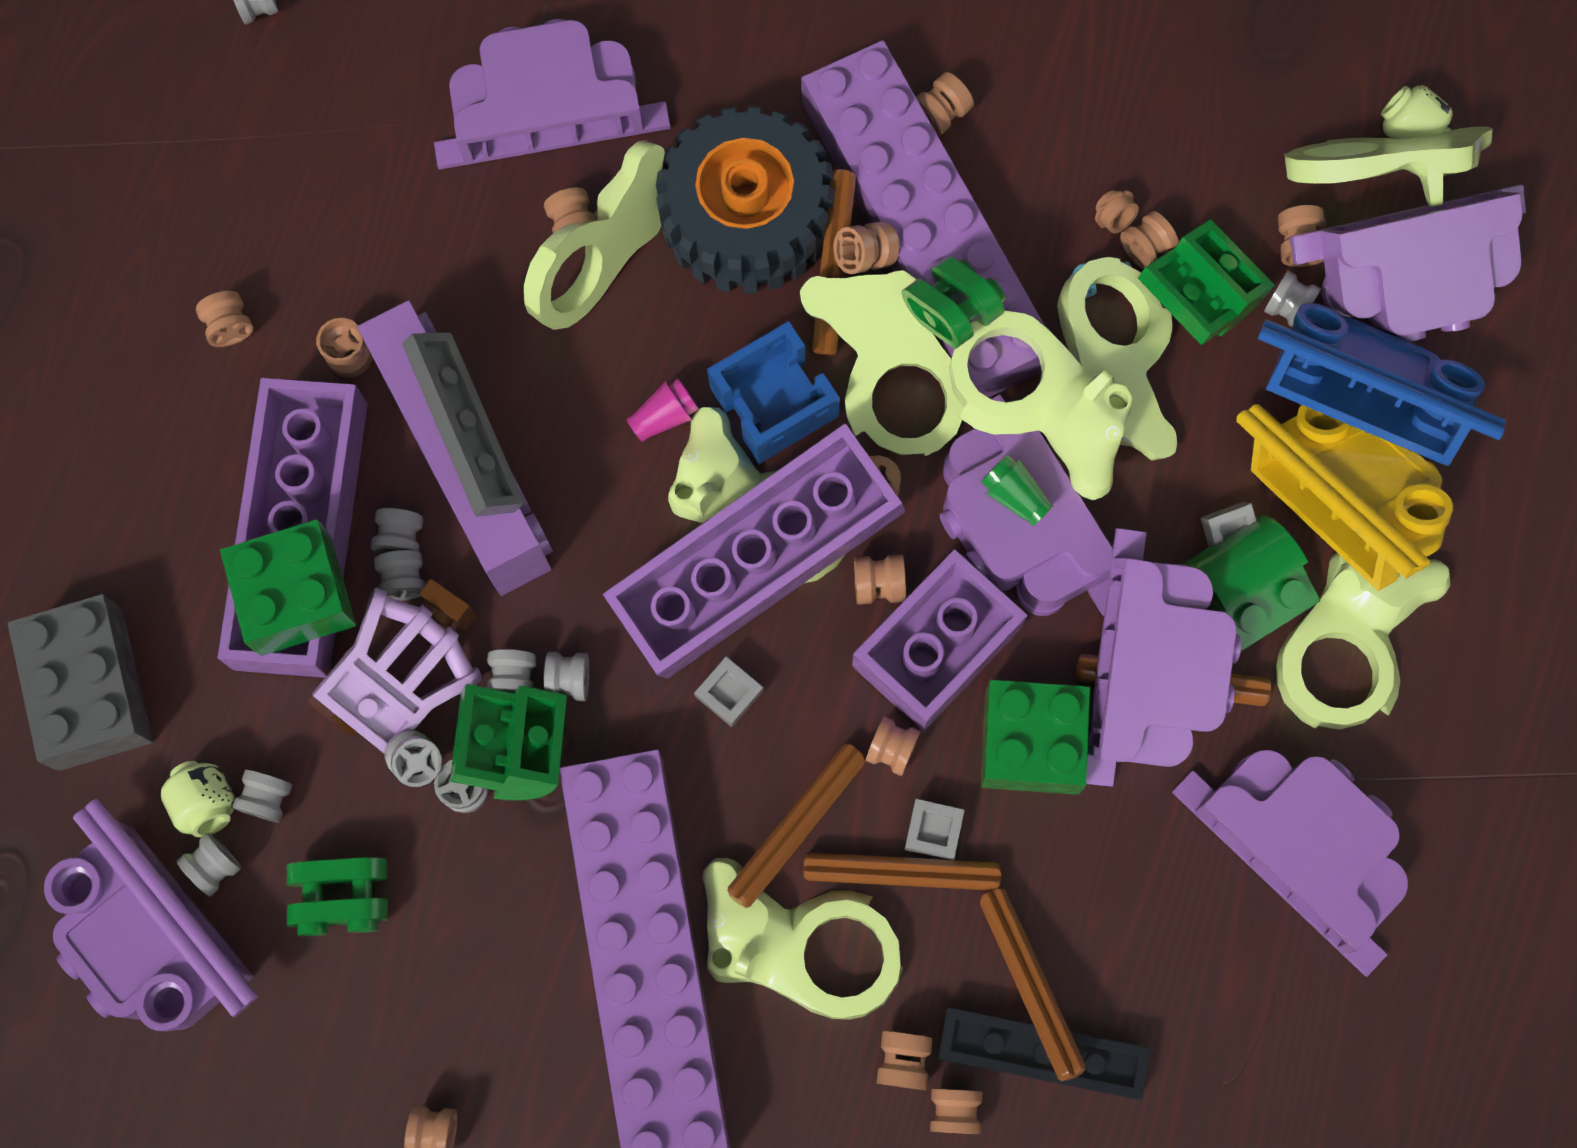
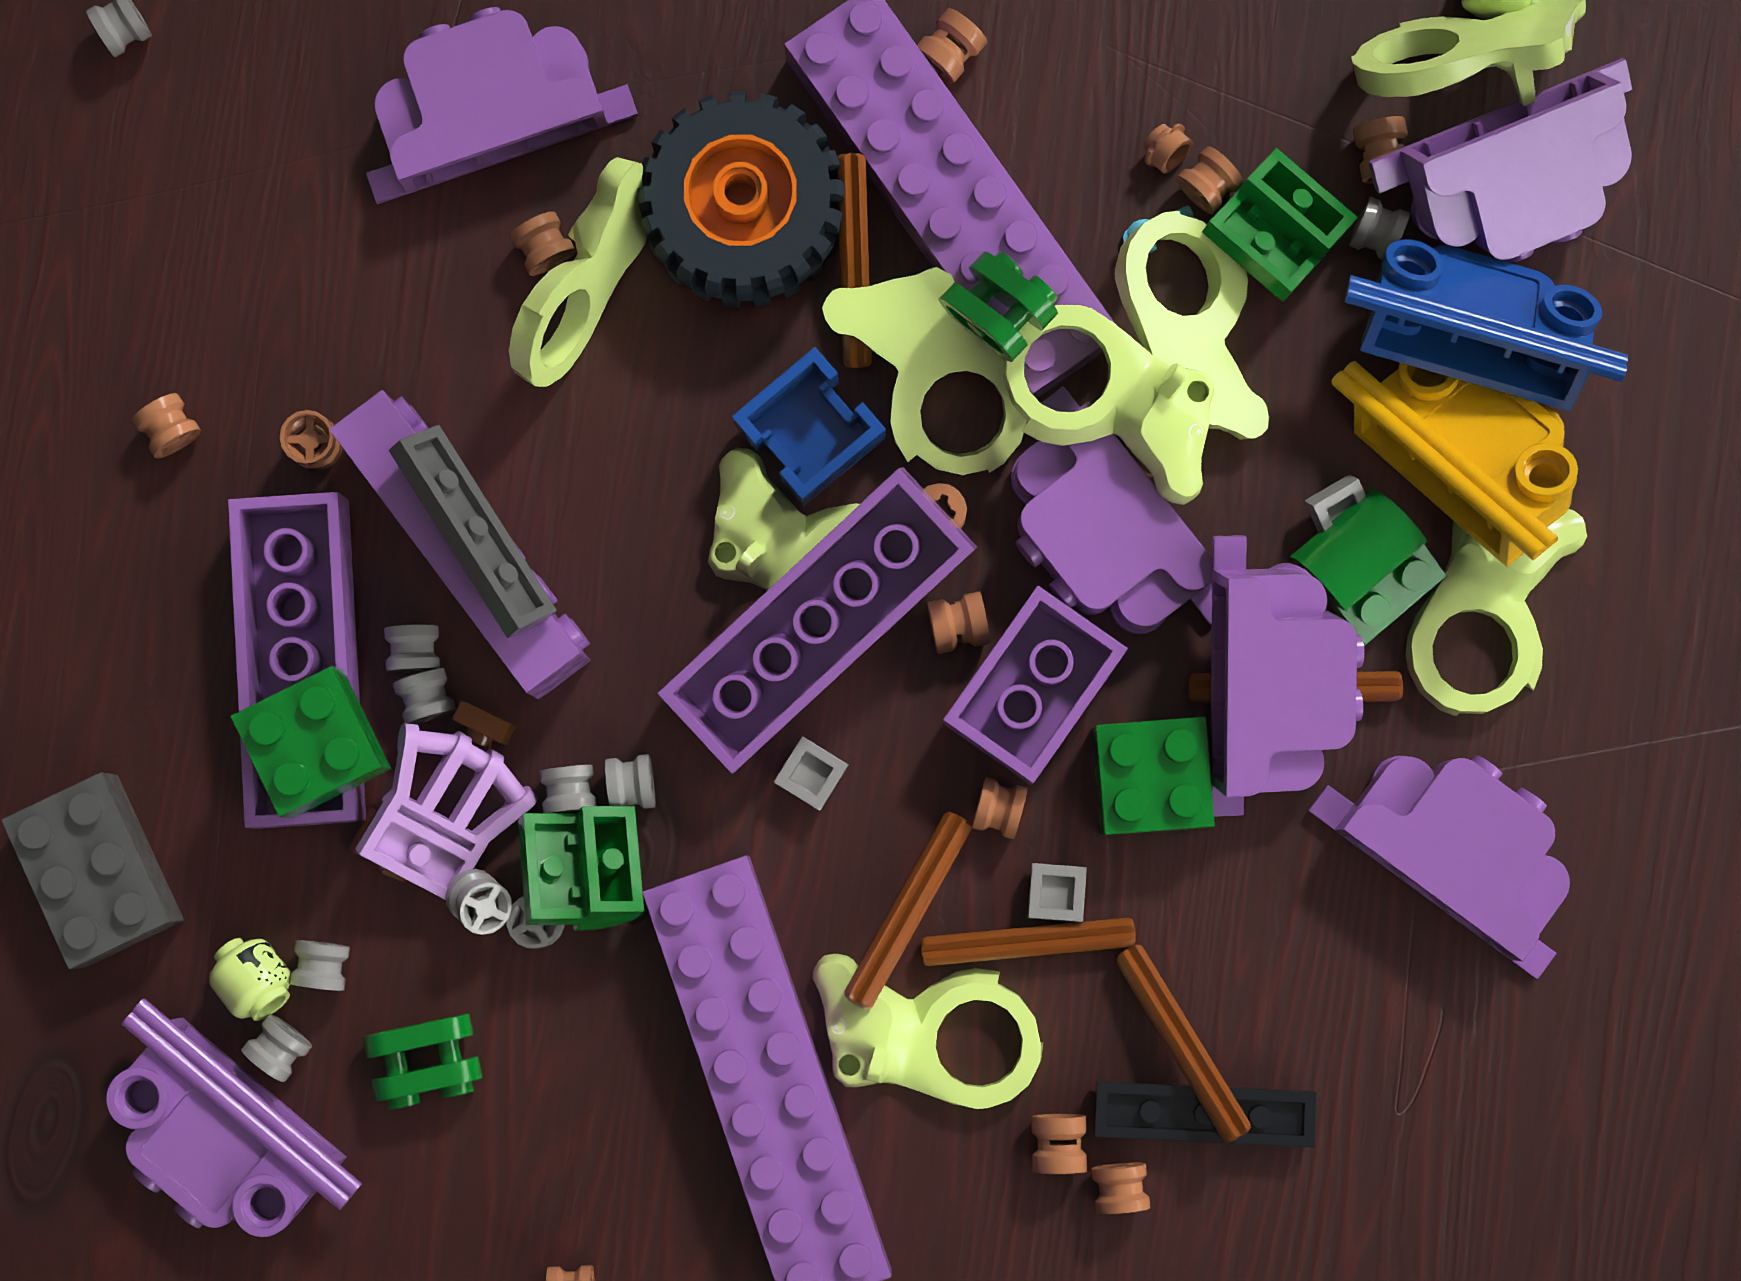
camera: 10 degrees left, 10 degrees up
(663, 410) = (687, 461): dark pink cone -> none
(866, 247) = (889, 243): nougat wheel -> none
(1016, 490) = (1097, 510): green cone -> none

